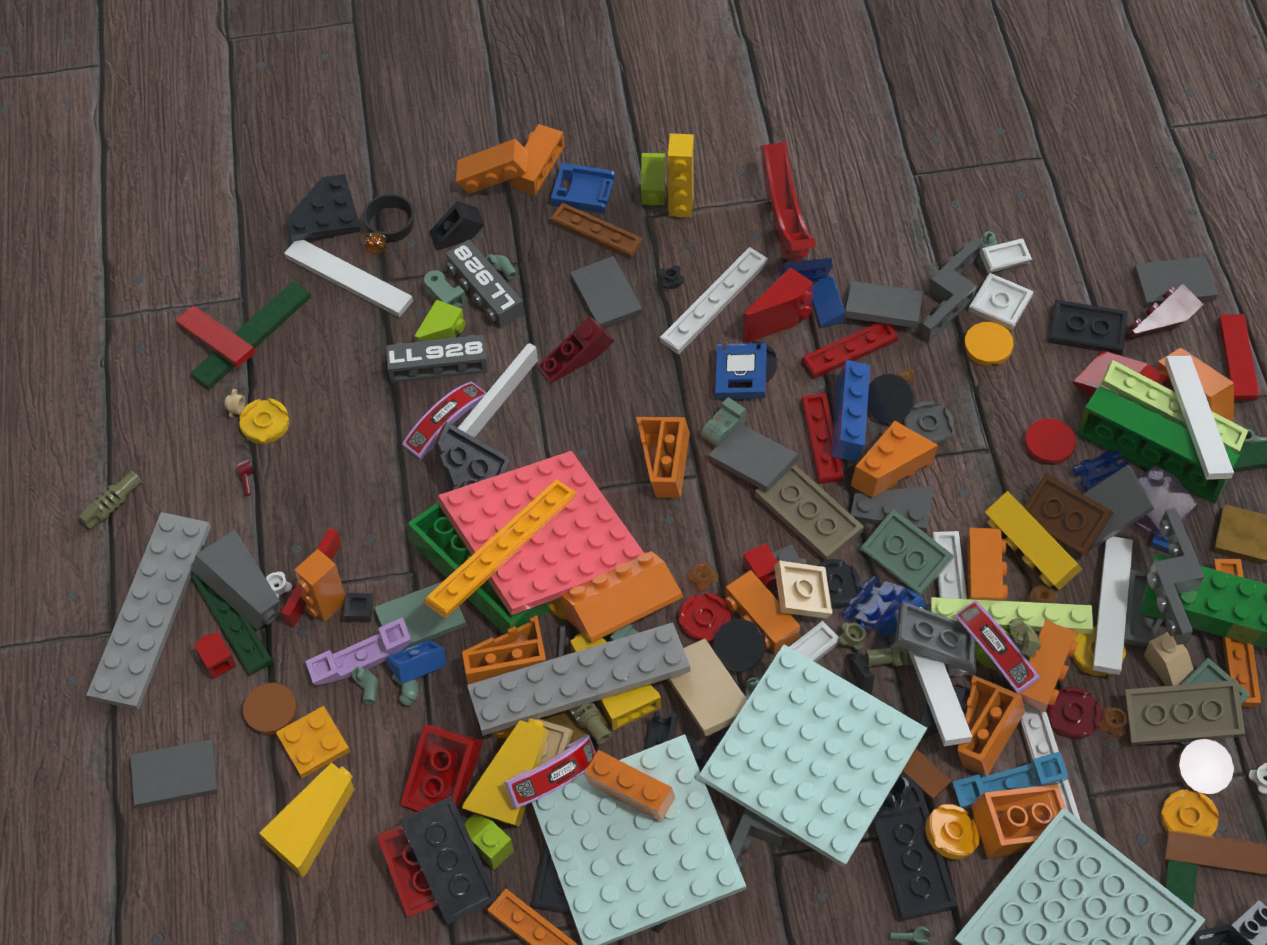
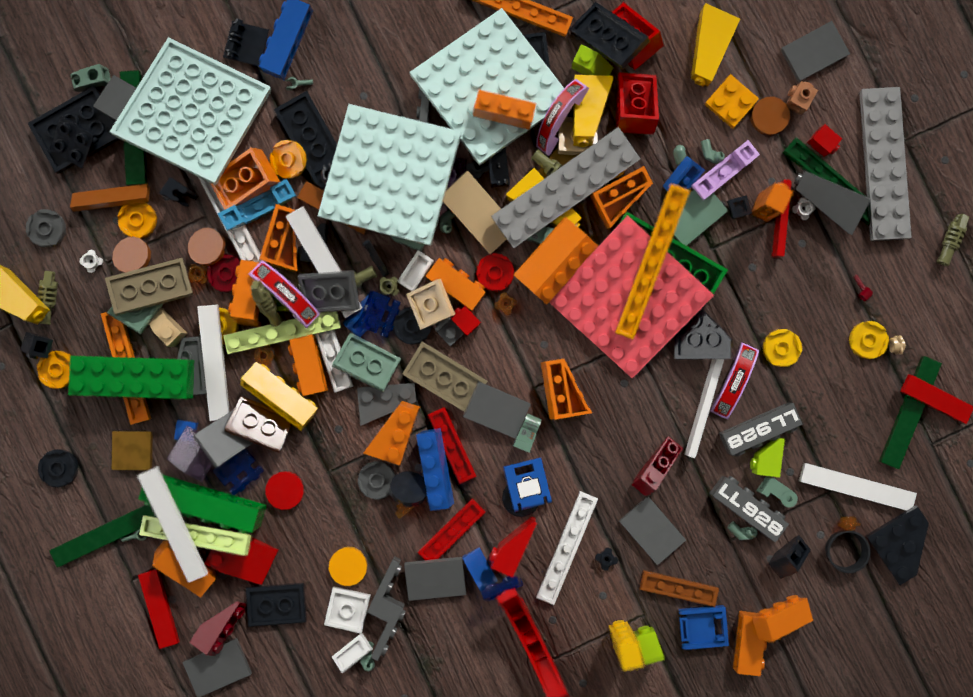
camera: 160 degrees right, 30 degrees up
(220, 716) = (801, 97): none -> nougat brick
(372, 439) = (782, 348): none -> yellow tile
(739, 645) = (464, 252): black tile -> none
(1094, 749) = (206, 246): none -> tile
(1117, 825) = (176, 192): none -> black hinge
(1175, 576) = (166, 376): dark grey bracket -> none

